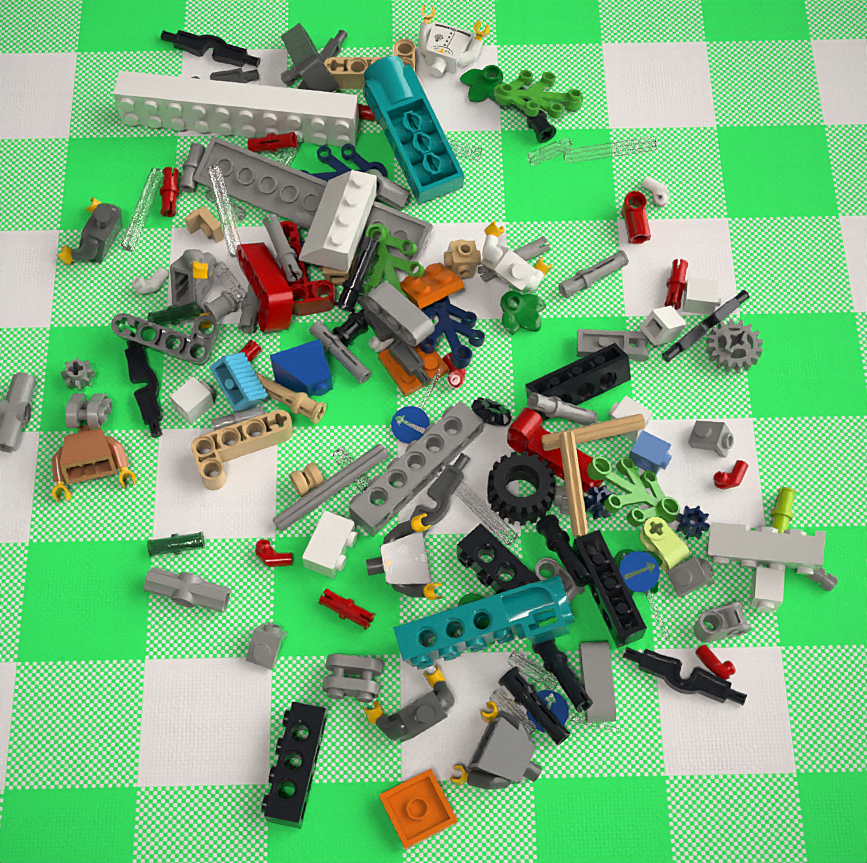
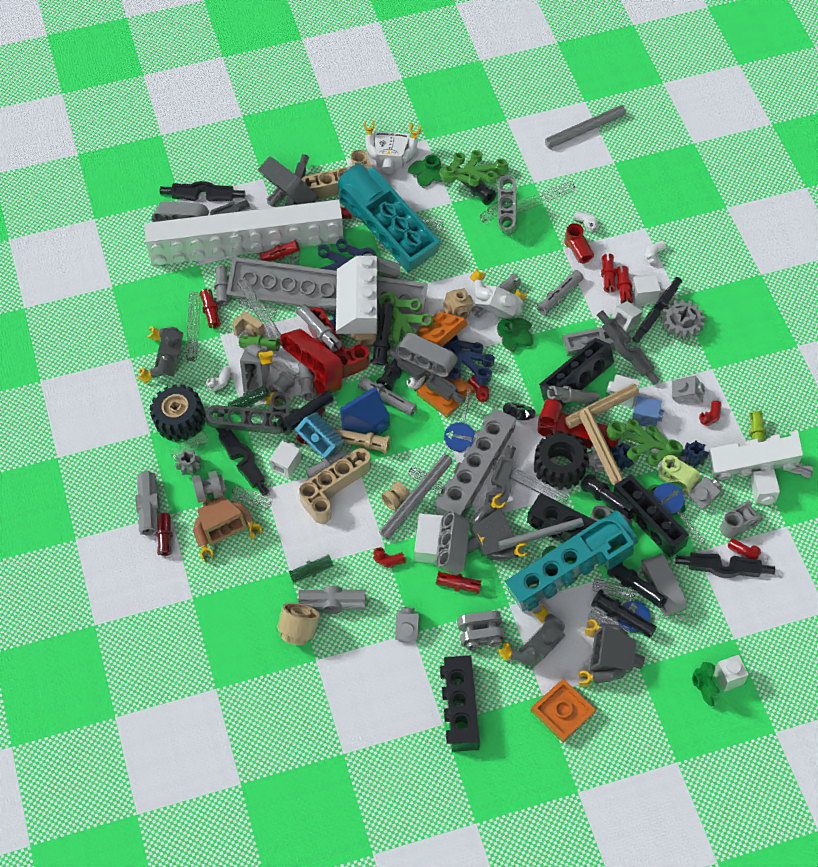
camera: 15 degrees left, 5 degrees down
(20, 455) = (164, 534): none -> dark red axle
(84, 310) = (177, 412): none -> black wheel
(90, 352) = (190, 444): none -> clear axle
(133, 609) = (297, 623): none -> tan piece
(138, 436) = (252, 497): none -> clear axle
(170, 64) = (178, 210): none -> light grey beam
(208, 356) = (295, 417): none -> black pin
(212, 246) = (271, 343): none -> bright green pin
(351, 559) = (452, 542): none -> light grey beam
(463, 576) = (540, 533): none -> light grey bar
(560, 138) = (507, 196): none -> light grey beam
(605, 819) = (703, 681): none -> green plate
(643, 821) = (731, 673): none -> white brick
(657, 376) = (633, 355): none -> dark grey piece
(662, 264) = (608, 273): none -> red pin
(695, 72) = (585, 126): none -> light grey axle
(726, 248) = (652, 250): none -> white arm

